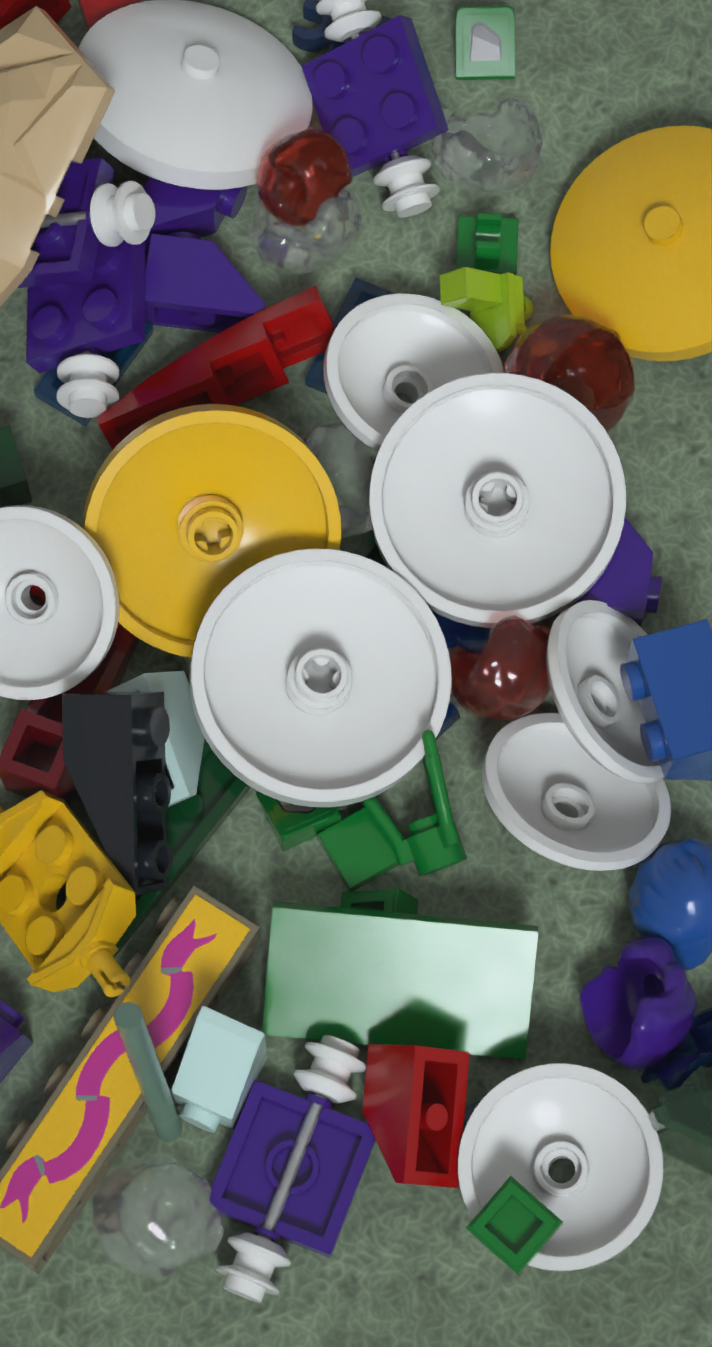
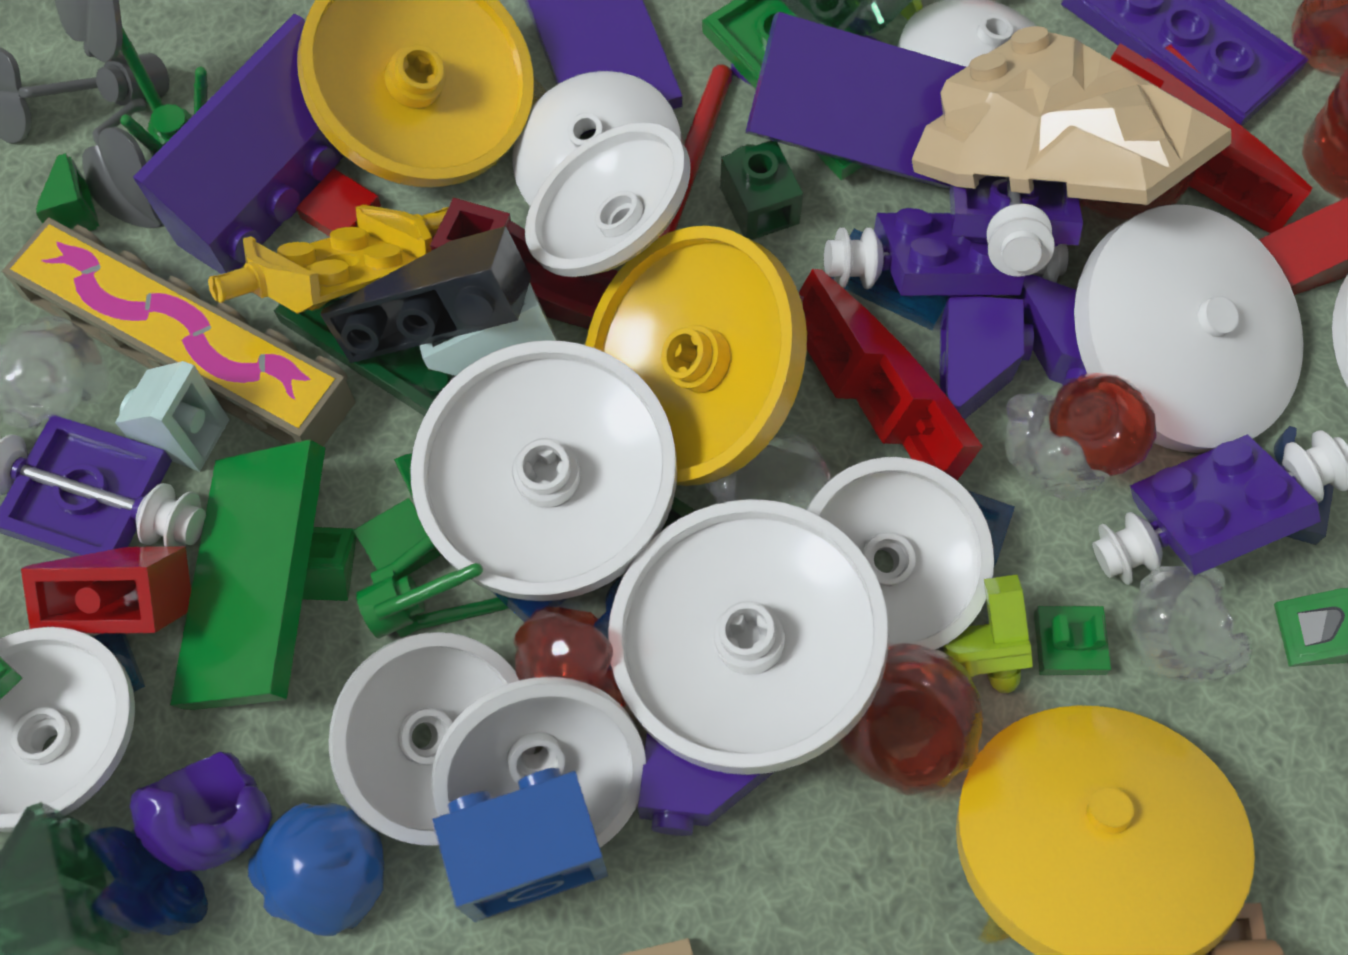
camera: 90 degrees right, 5 degrees down
(148, 1071) = (129, 306): sand green bar -> none

